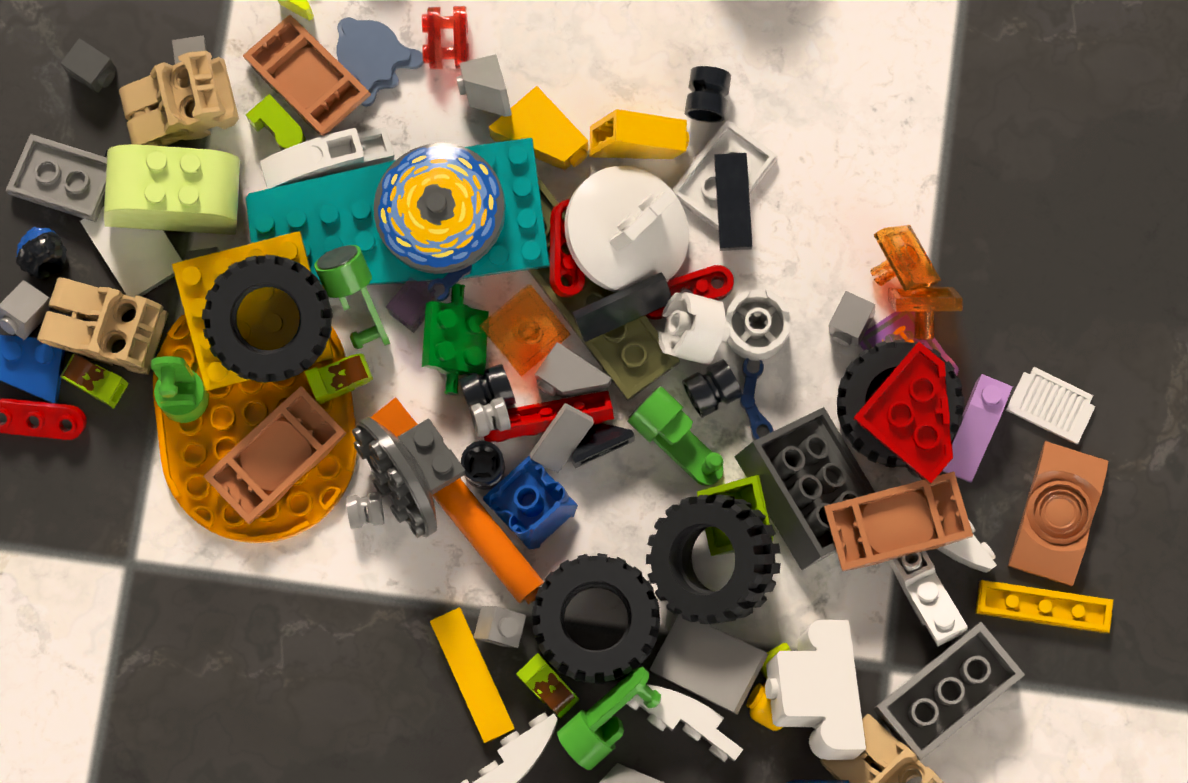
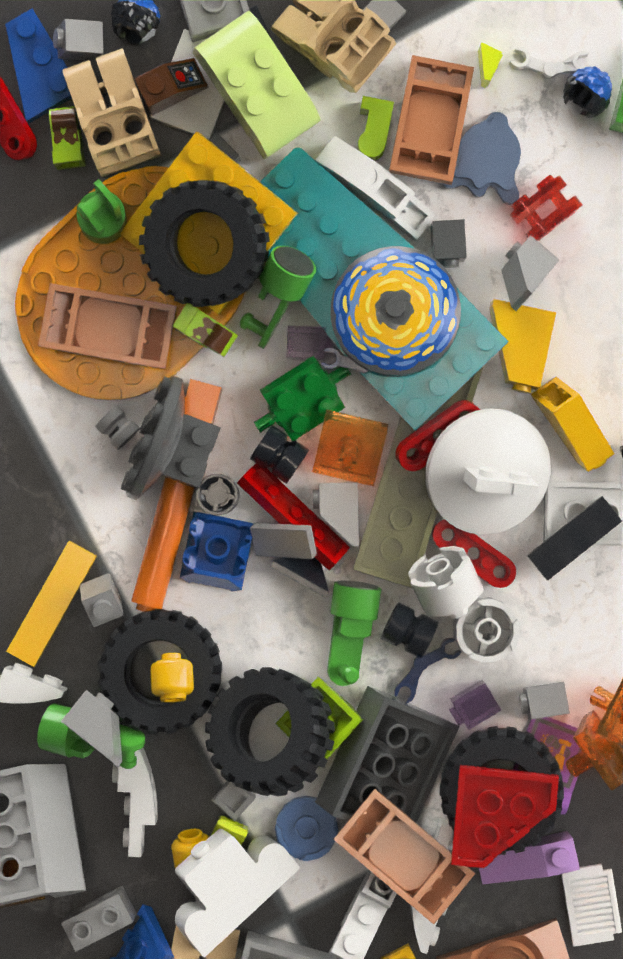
camera: 50 degrees right, 10 degrees up
(117, 261) = (170, 84): none -> reddish brown slope
(414, 130) = (448, 242): none -> dark grey brick
(490, 417) = (257, 474): light grey wheel -> none
(547, 686) = (83, 667): leg -> none
(600, 697) = (96, 724): none -> light grey slope
(607, 603) = (172, 678): none -> yellow head
(622, 307) = (422, 514): black tile -> none
(709, 663) = (188, 784): light grey tile -> none
(752, 633) = (233, 800): none -> light grey tile
(814, 380) = (474, 705): none -> clear purple brick
(819, 594) = (305, 829): none -> medium blue tile

